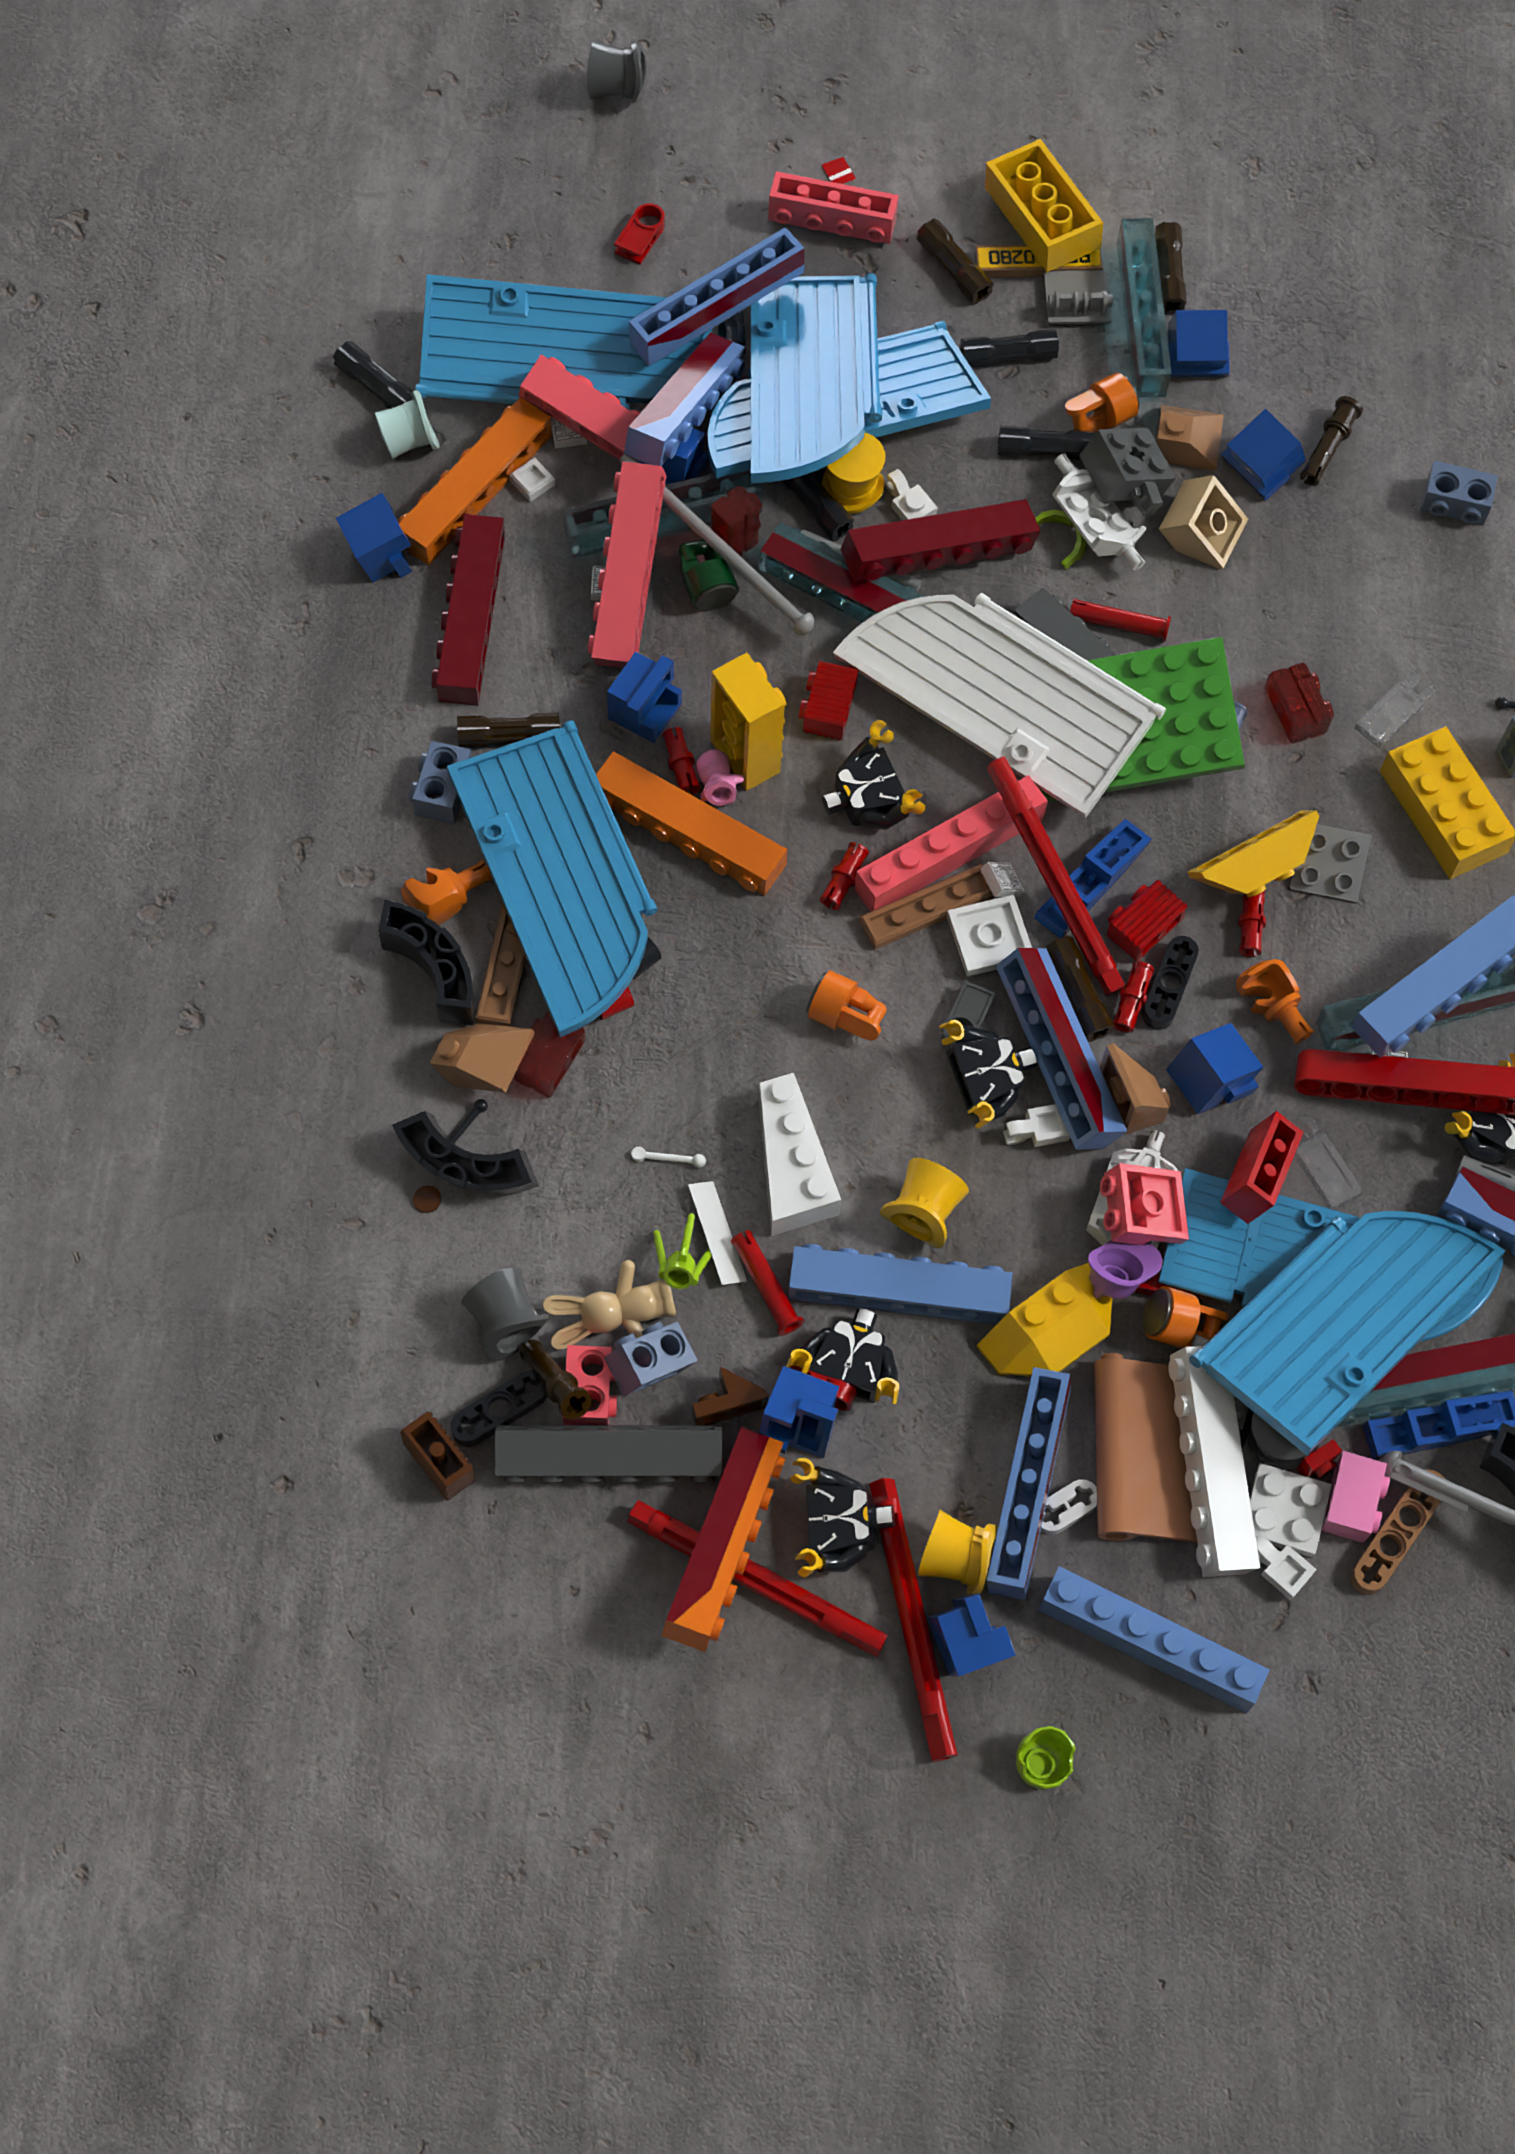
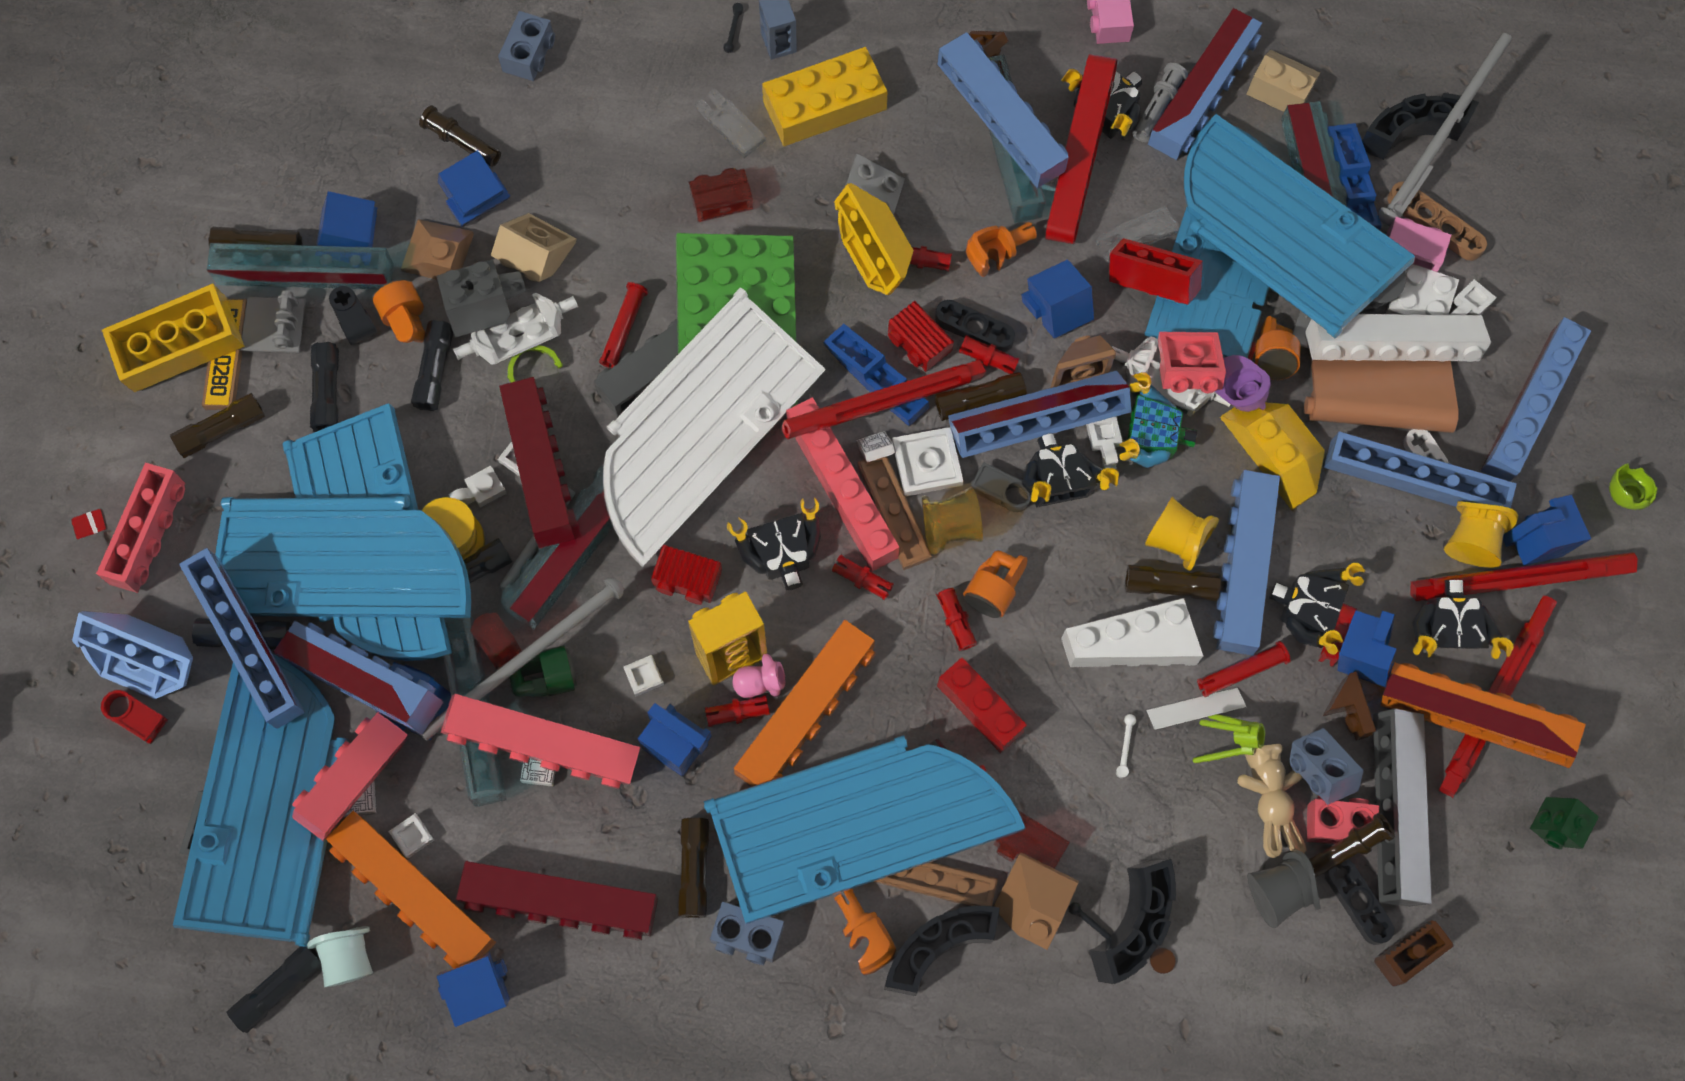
camera: 85 degrees left, 5 degrees up
(597, 1636) = (1564, 822): none -> dark green head
(701, 997) = (981, 705): none -> red brick
(705, 217) = (133, 652): none -> light blue wedge
(705, 666) = (643, 675): none -> white tile
(781, 981) = (956, 619): none -> red pin
(866, 1176) = (1149, 580): none -> dark brown axle
(917, 954) = (952, 520): none -> clear yellow hat
(1056, 1176) = (1154, 426): none -> torso
(1094, 361) = (352, 317): none -> black piece

